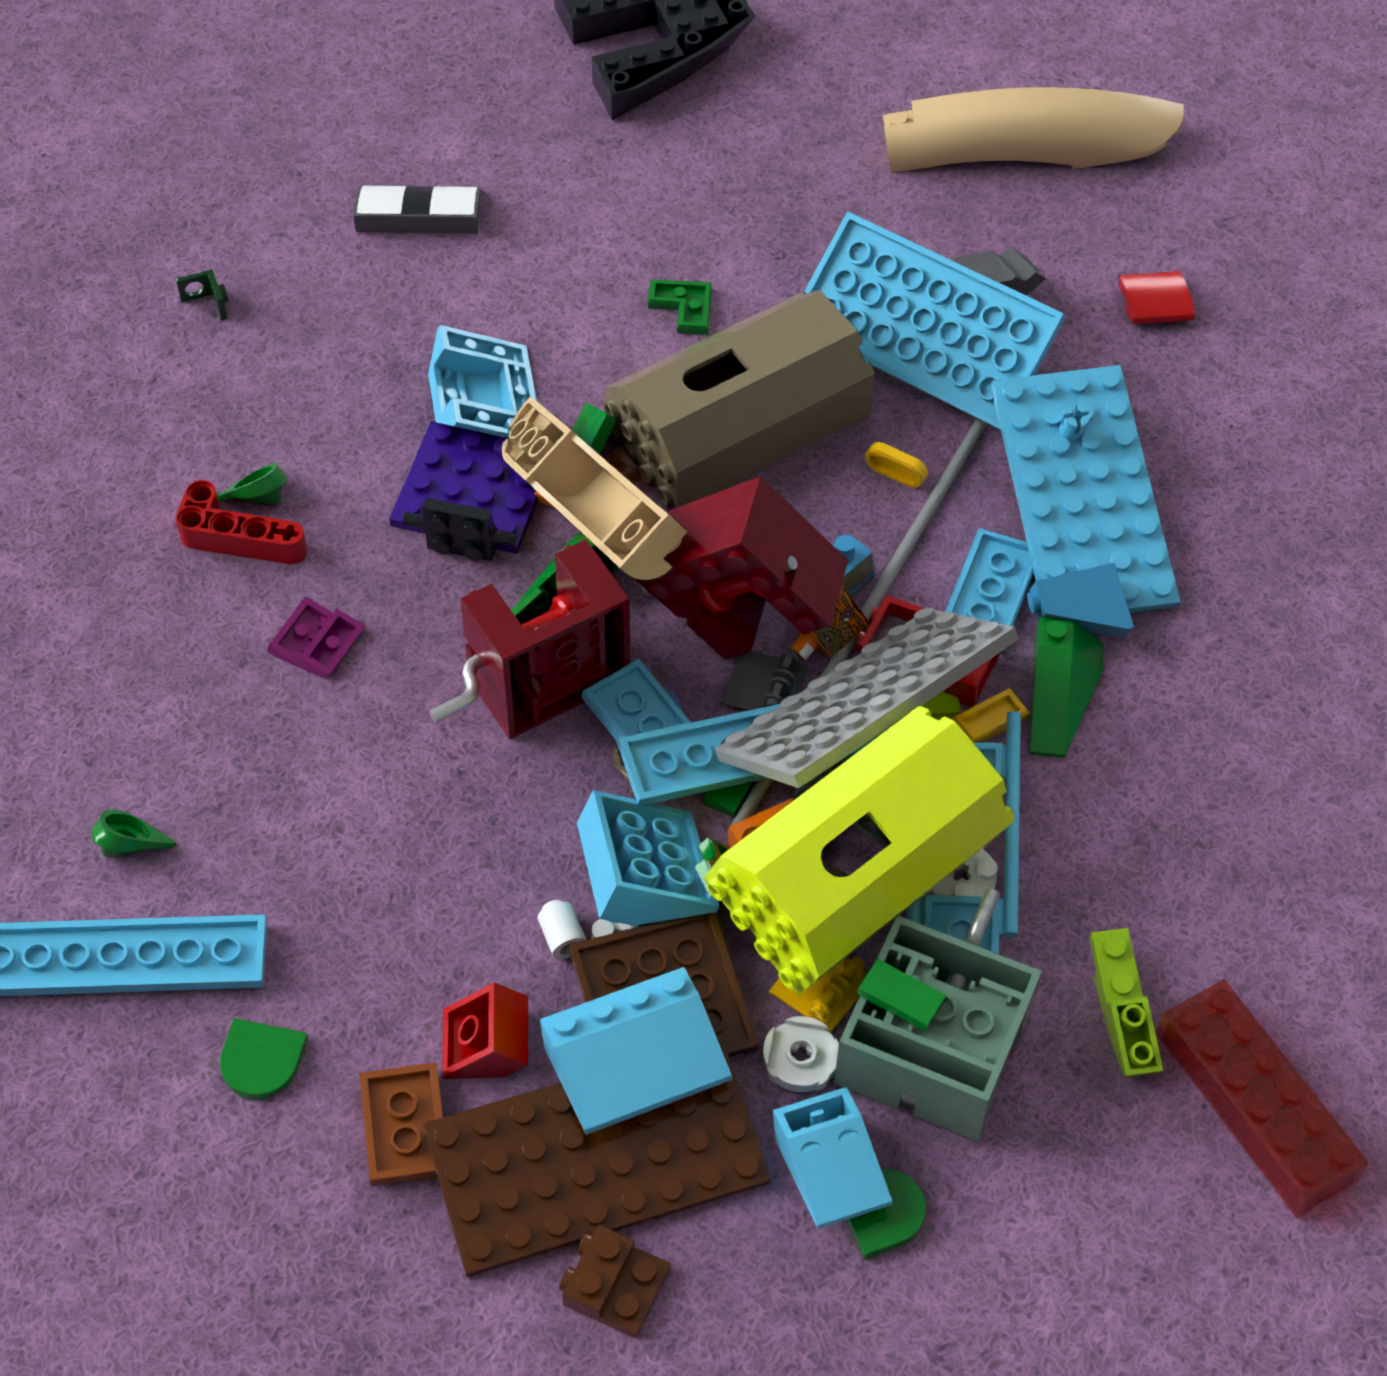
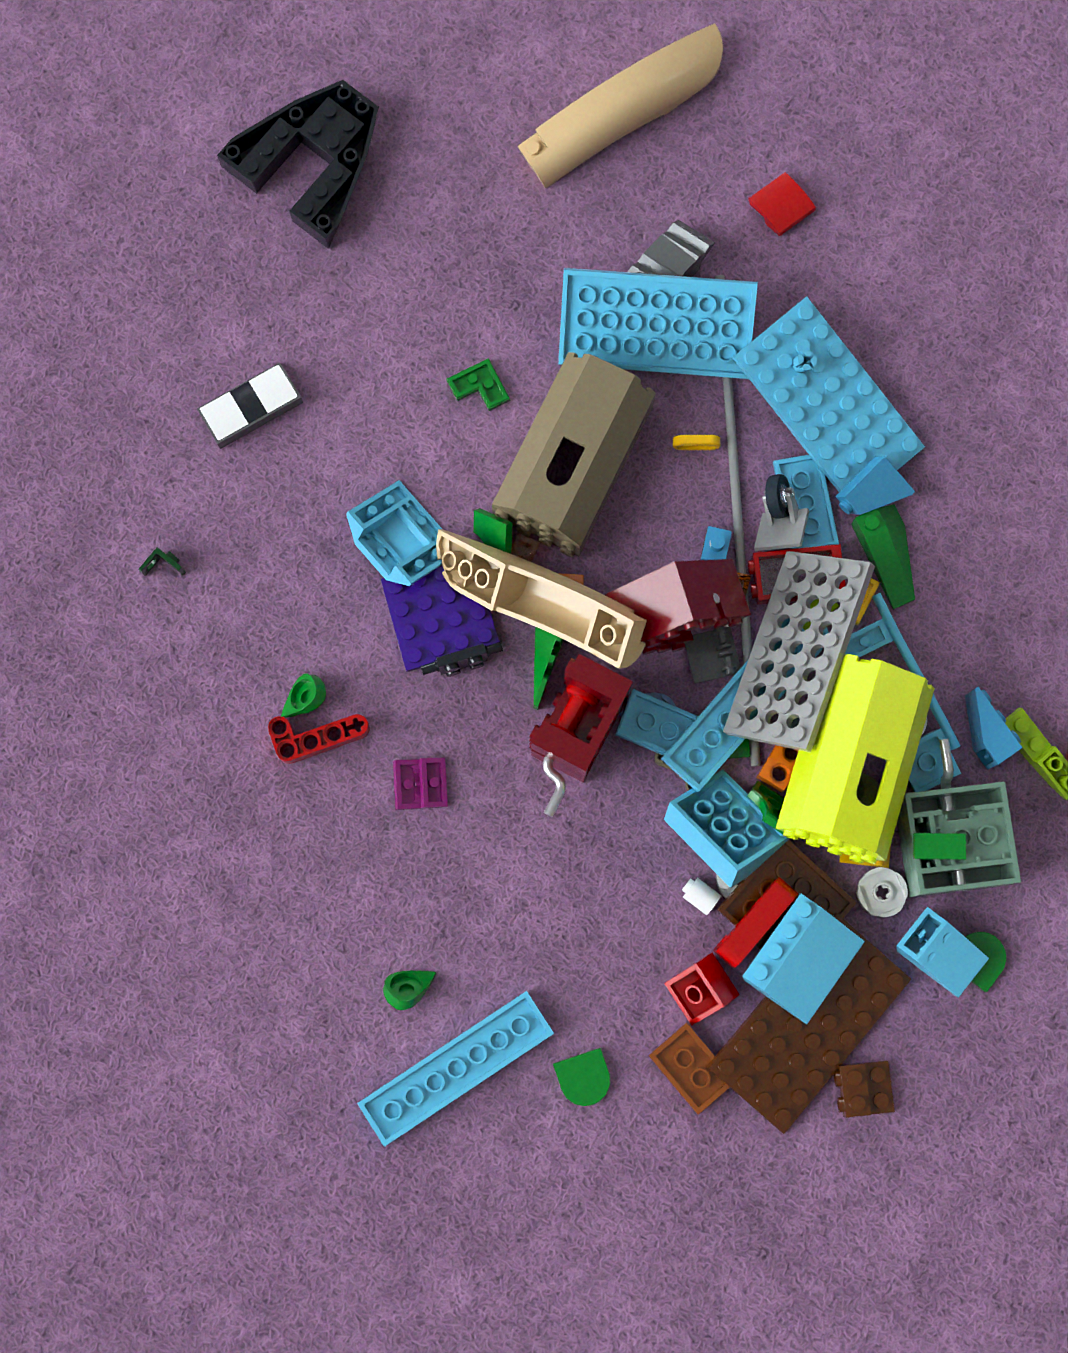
camera: 30 degrees left, 25 degrees up
(600, 975) = (755, 923): none -> red beam
(953, 559) = (783, 521): none -> light grey plate
(1066, 942) = (989, 733): none -> dark azure slope

